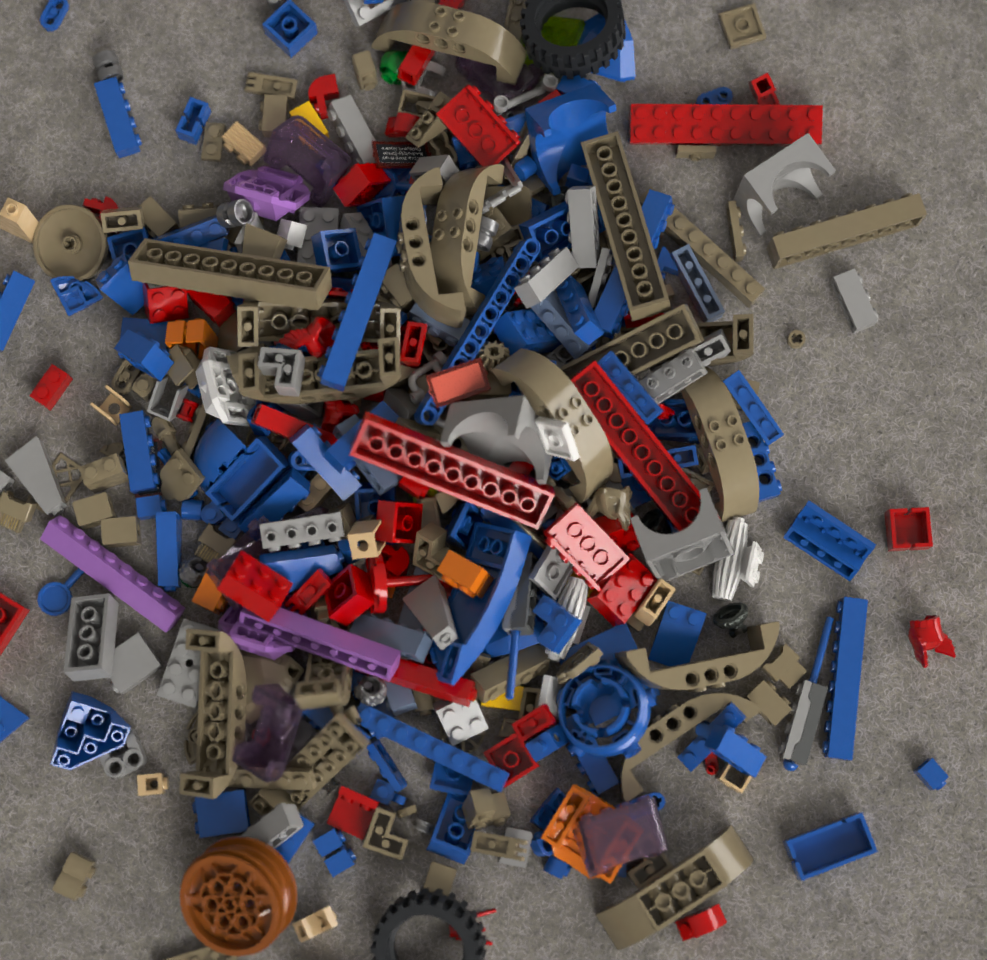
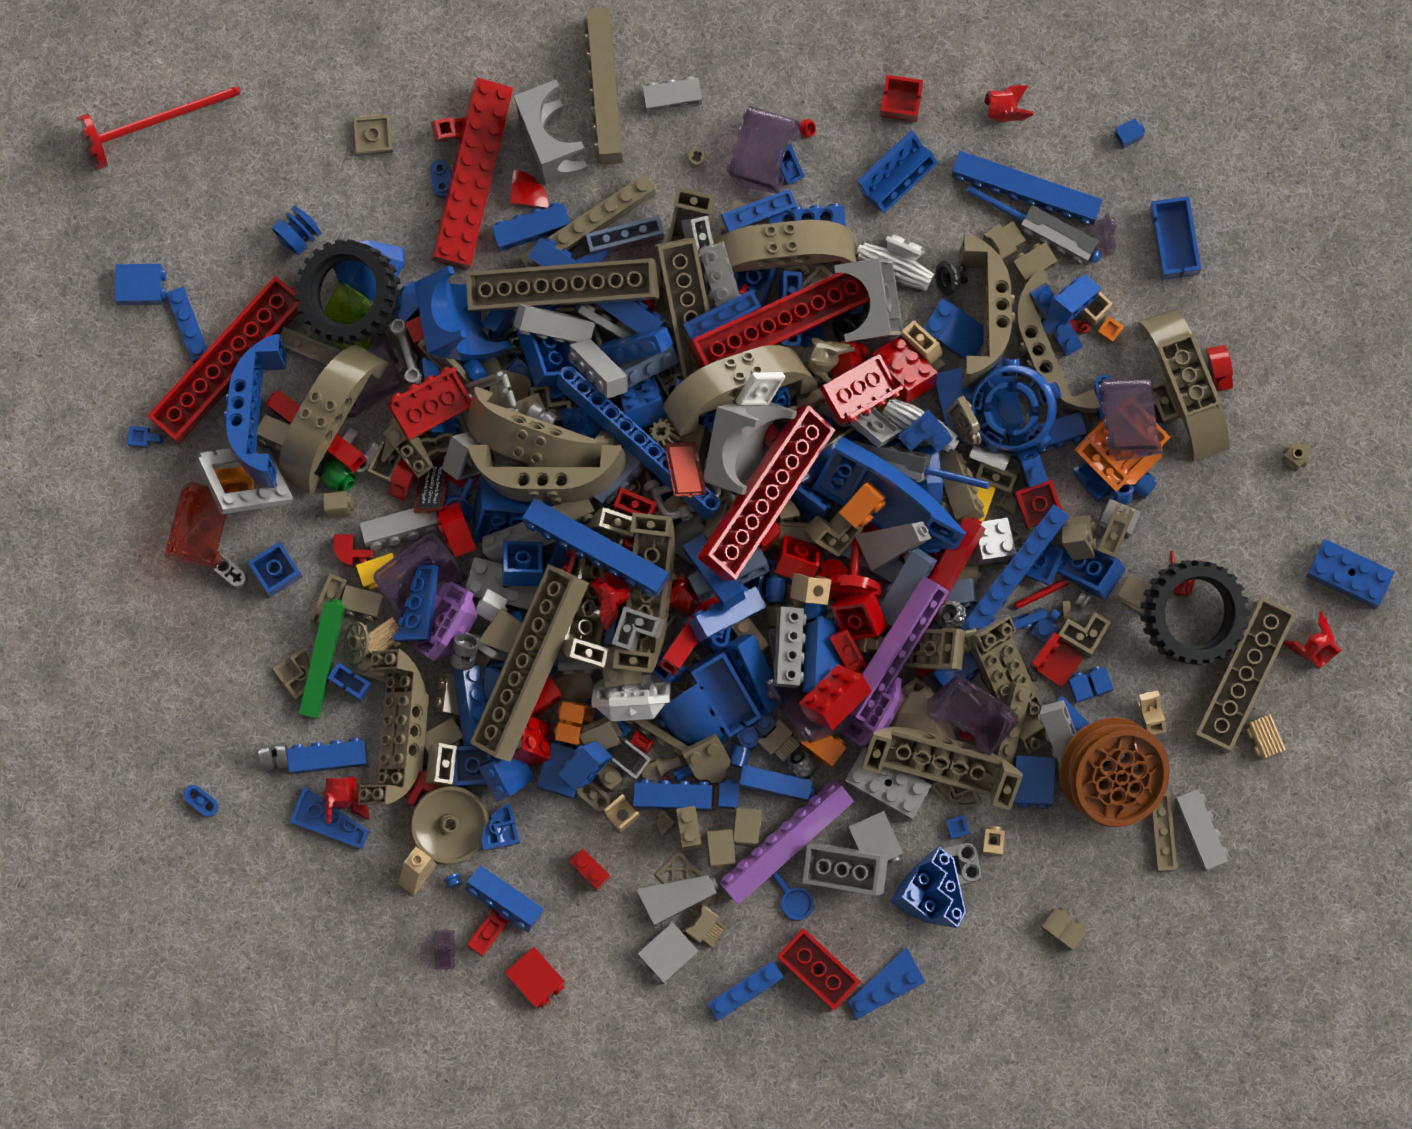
camera: 70 degrees left, 0 degrees up
(18, 260) = (452, 880): none -> blue bush
(56, 131) = (311, 815): none -> blue wing
(80, 137) = (342, 794): none -> red helmet
(147, 179) = (401, 728): none -> dark tan slope
(161, 744) = (958, 827): none -> blue plate
(201, 75) = (299, 667): none -> dark tan brick
(210, 89) = (322, 658): none -> green brick
(232, 118) = (356, 643): none -> dark tan wheel
(266, 167) = (419, 610): none -> blue wing
(364, 506) = (775, 588): none -> blue brick
(421, 781) = (1041, 593): none -> red bar
(533, 722) = (1011, 474): red plate -> none
(685, 192) = (531, 226): none -> blue brick
(696, 152) = (492, 207): dark tan plate -> none
(716, 797) = (1110, 329): none -> orange plate
(721, 183) = (527, 191): none -> red brick
(736, 231) = (579, 188): dark tan plate -> none
(810, 430) = (790, 166): none -> blue slope
(818, 397) = (761, 149): none -> clear purple windscreen
(821, 773) = (1108, 230): none -> clear purple slope
(853, 445) = (807, 128): none -> red plate

